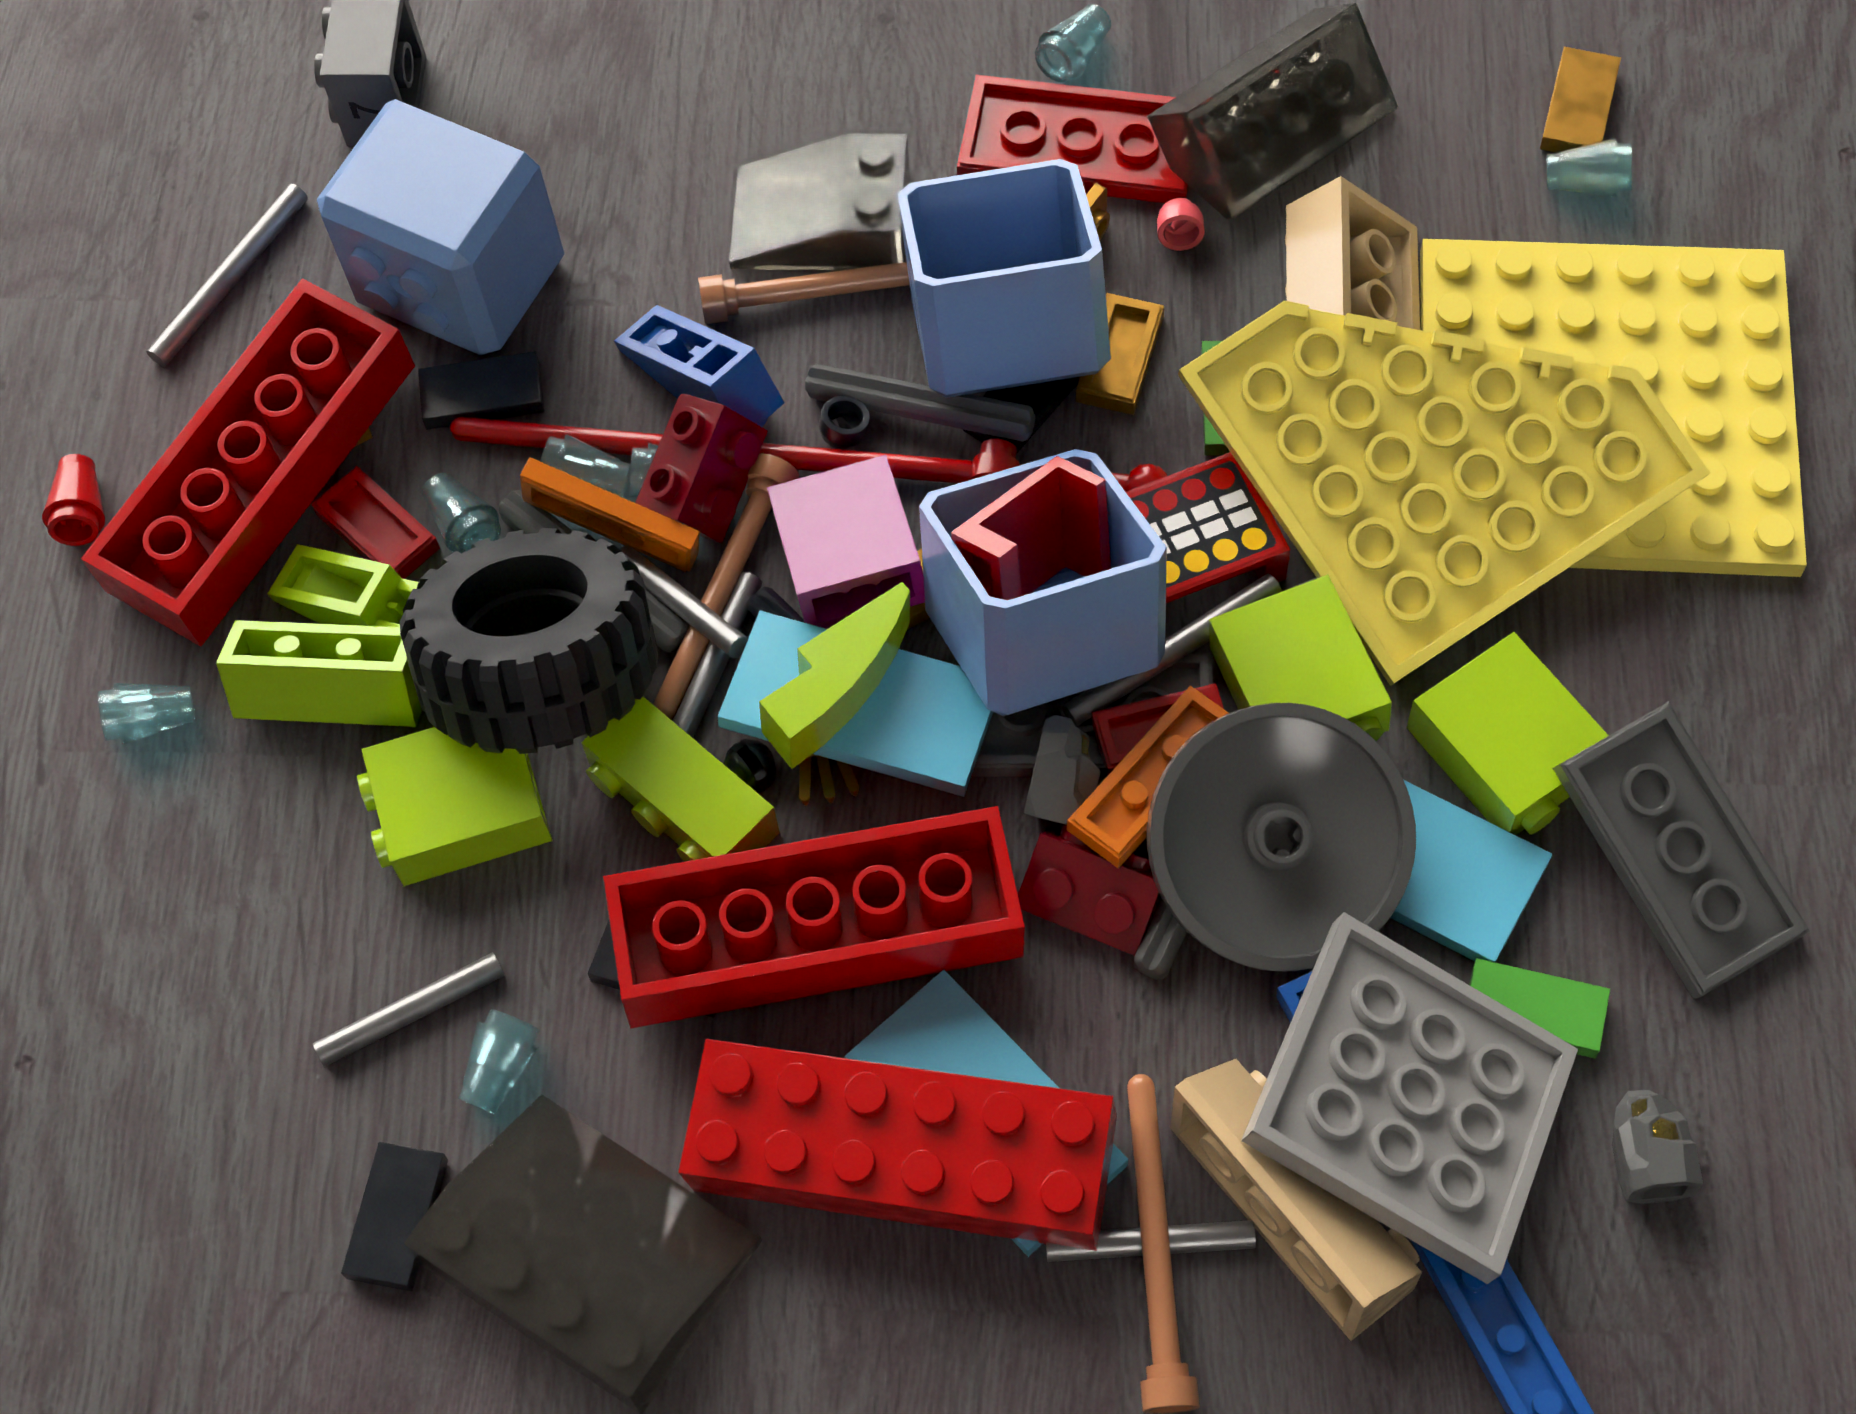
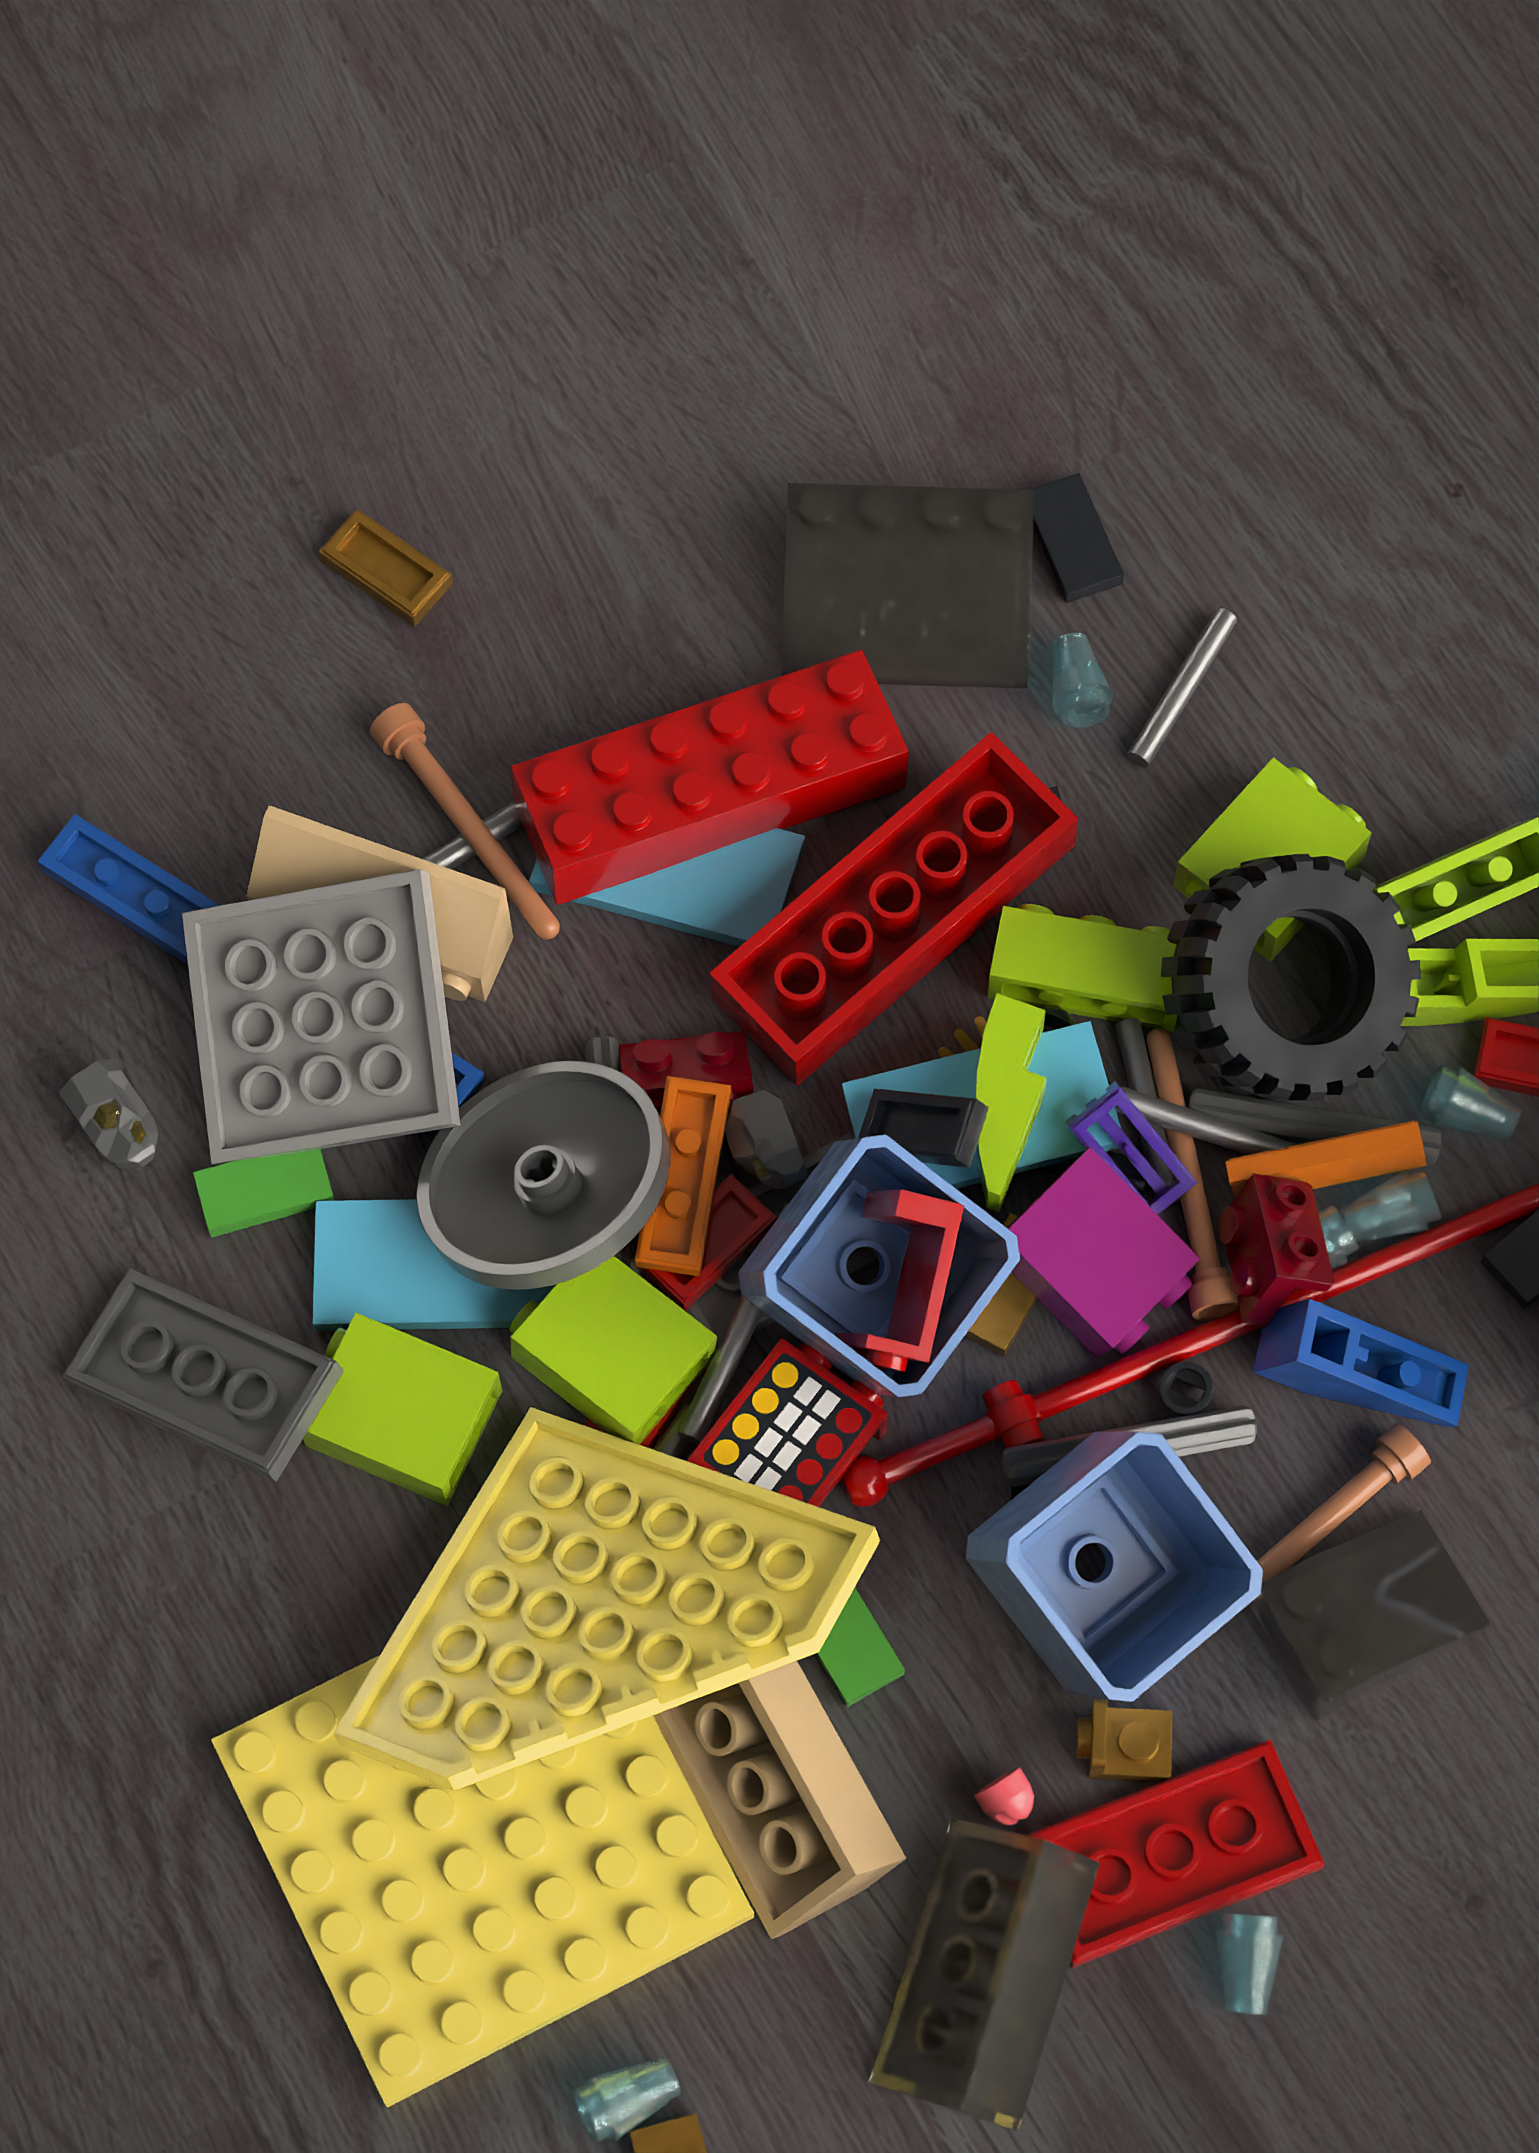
camera: 145 degrees right, 5 degrees up
(762, 616) = (1098, 1111): none -> dark purple tile
(928, 680) = (927, 1125): none -> black tile
(1132, 339) = (977, 1629): pearl gold tile -> none

